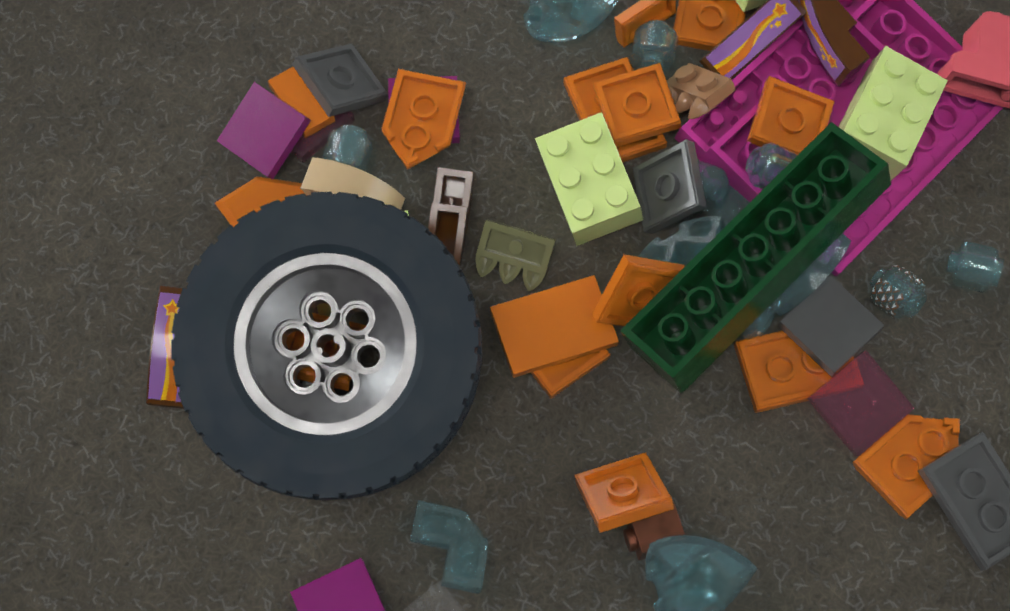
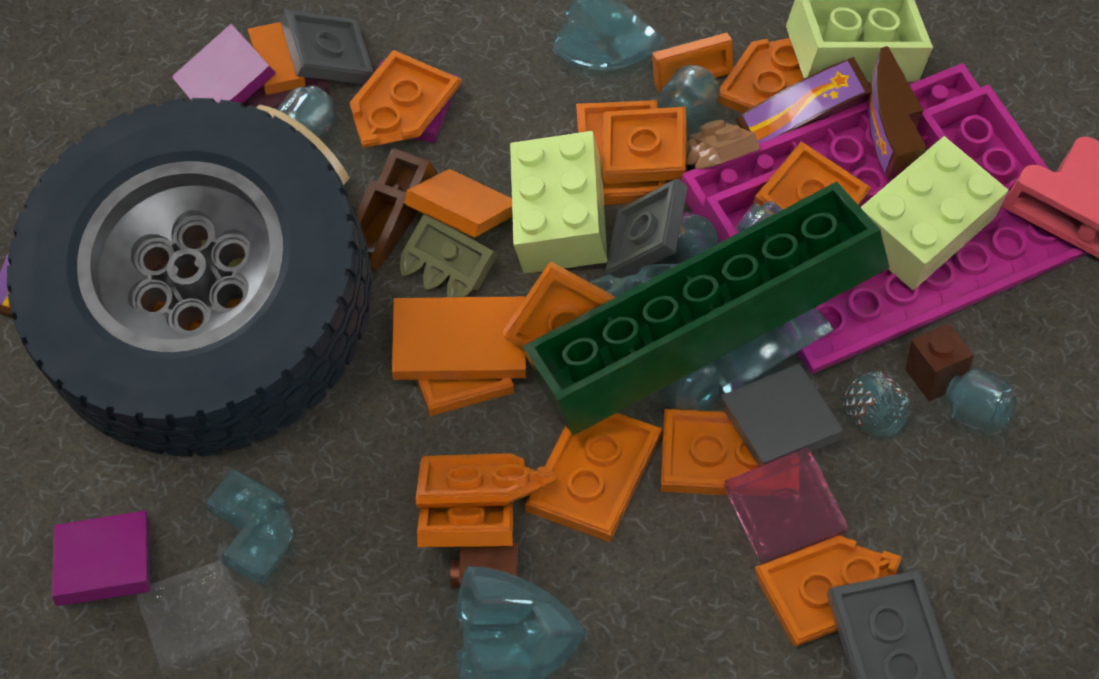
camera: 20 degrees right, 15 degrees down
(509, 200) = (460, 203): none -> orange tile
(616, 452) = (477, 480): none -> orange tile
(702, 421) = (596, 475): none -> orange tile
(932, 241) = (936, 360): none -> copper brick

